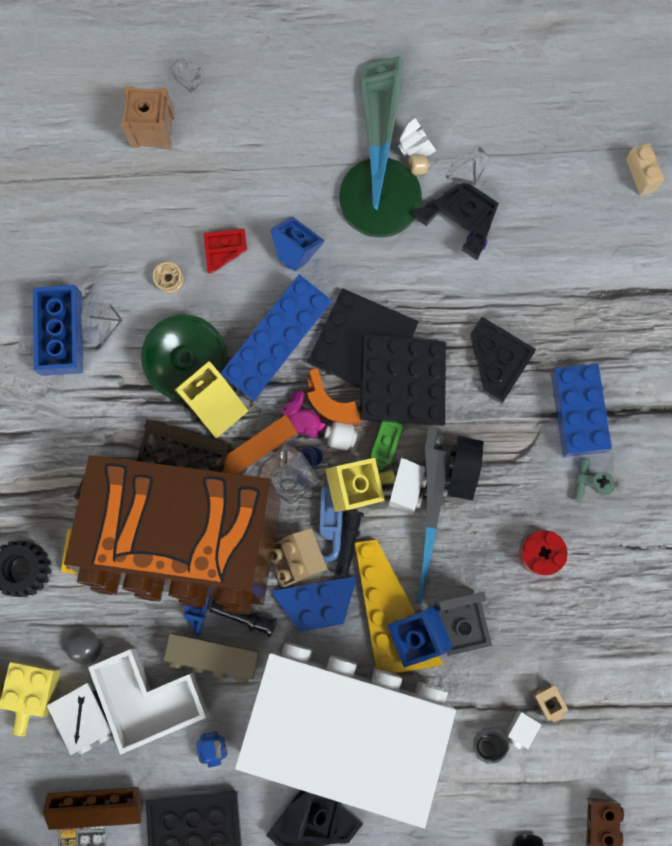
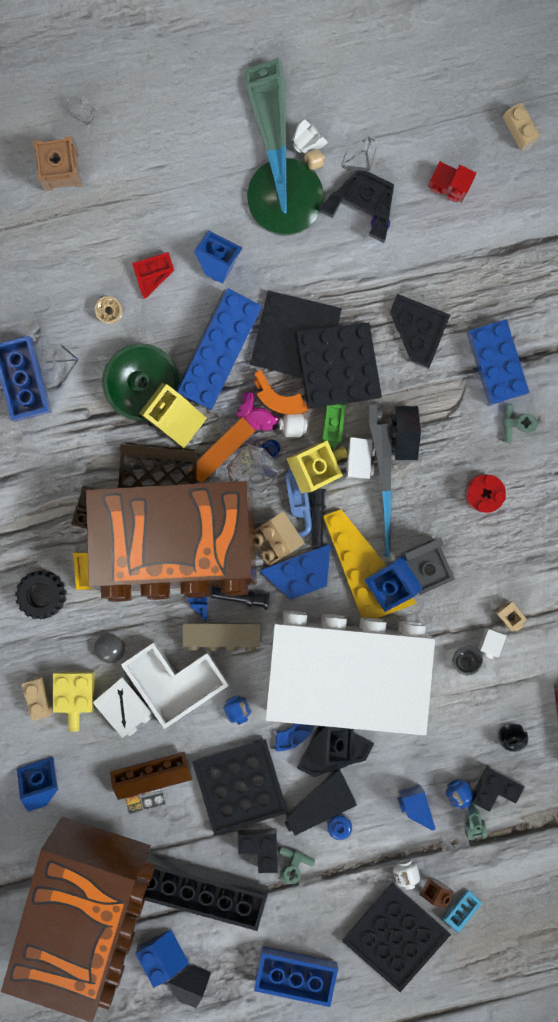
camera: 15 degrees left, 10 degrees up
(268, 795) = (292, 736): none -> blue tile
(561, 211) = (452, 181): none -> red brick

